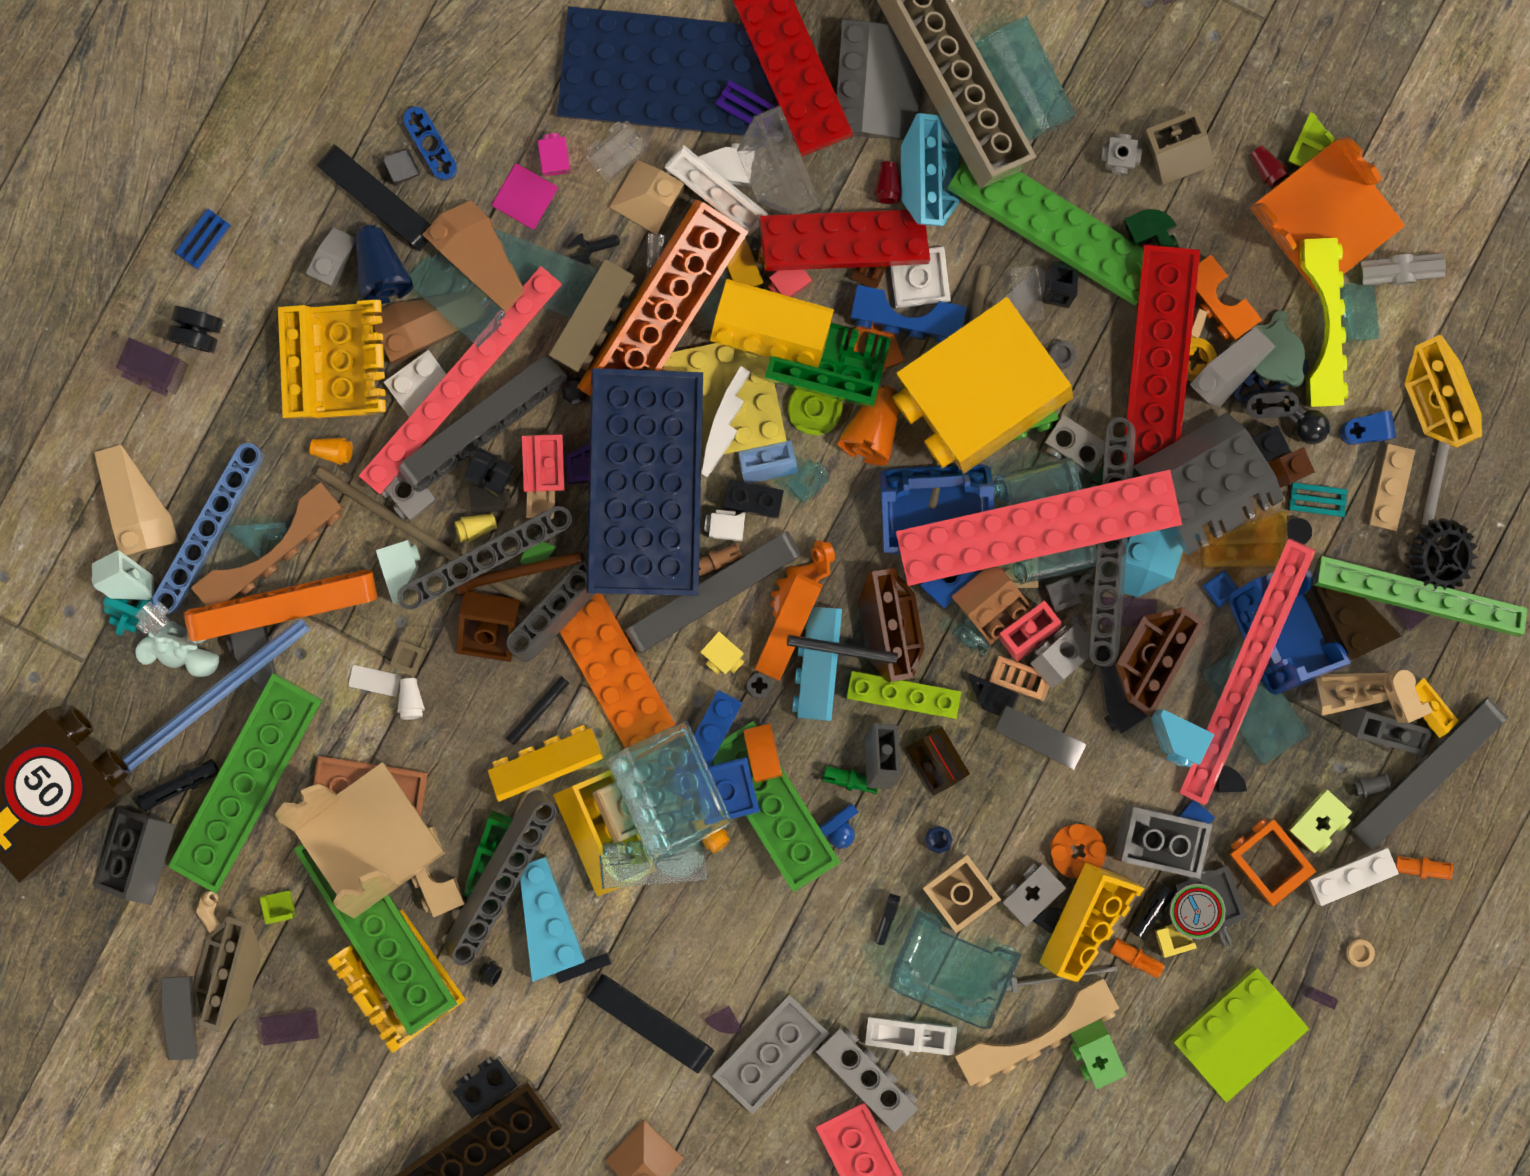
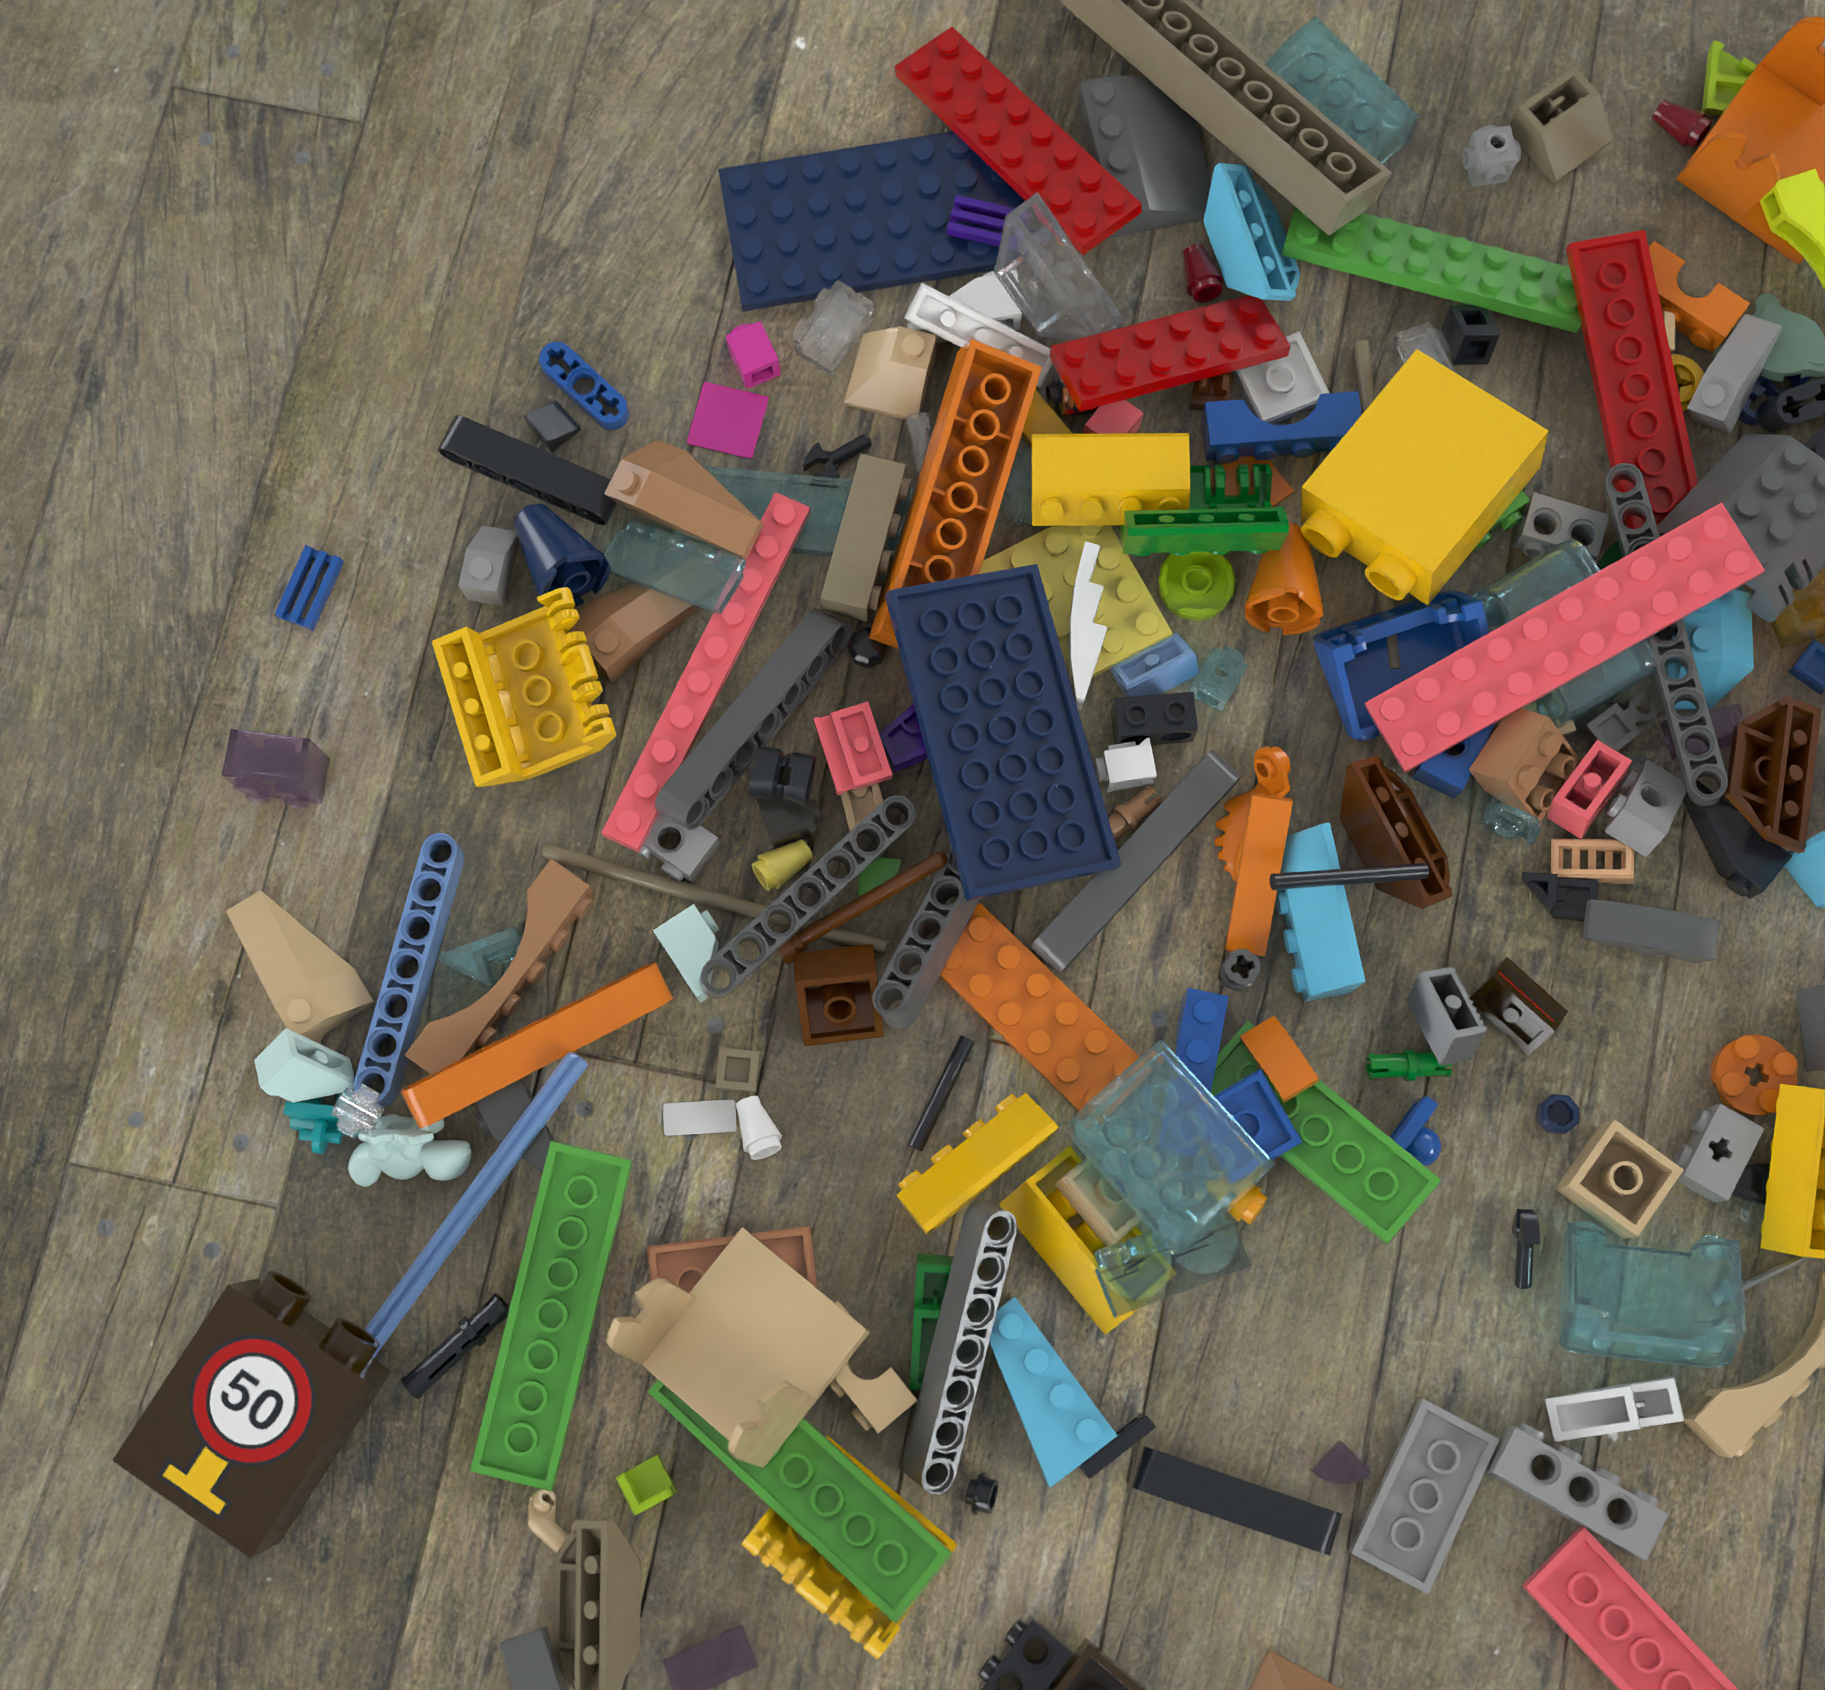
camera: 15 degrees left, 10 degrees down
(134, 856) = (418, 1470): dark grey slope -> none
(194, 329) = (323, 702): black wheel -> none
(332, 449) = (557, 814): light orange cone -> none
(415, 381) = (645, 693): white plate -> none
(722, 655) = (1176, 941): light yellow brick -> none
(903, 695) = (1444, 926): lime brick -> none
(1149, 225) = (1554, 231): dark green brick -> none

